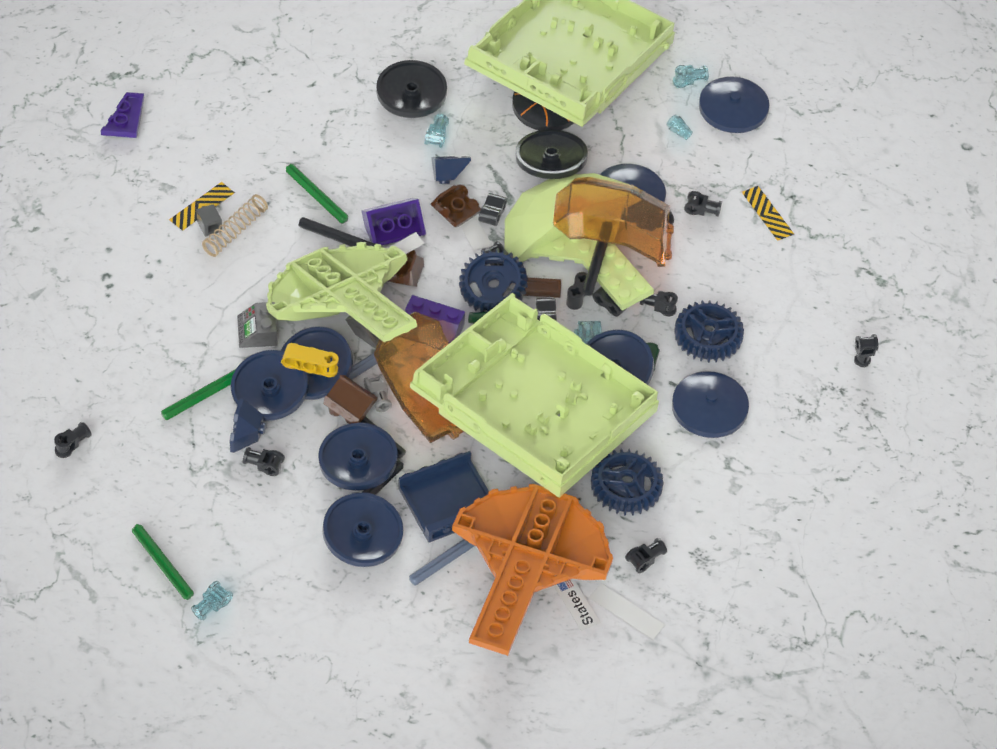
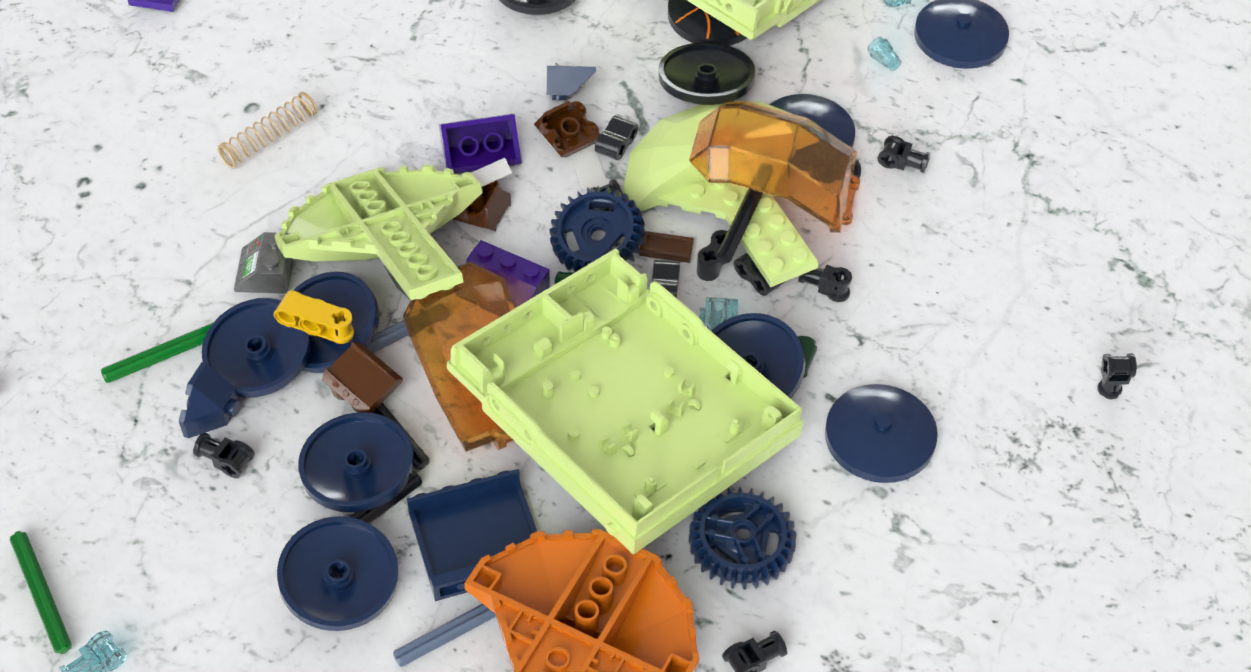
camera: 10 degrees right, 0 degrees up
(189, 215) = (234, 103): sticker -> none
(208, 219) = (235, 119): dark grey brick -> none
(317, 193) = (387, 99): green axle -> none
(331, 233) = (394, 150): black axle -> none
(379, 388) = (409, 367): light grey connector -> none
(437, 131) = (561, 35): clear light blue connector -> none
(706, 342) = (885, 343): dark blue gear -> none
(767, 213) = (993, 174): sticker -> none

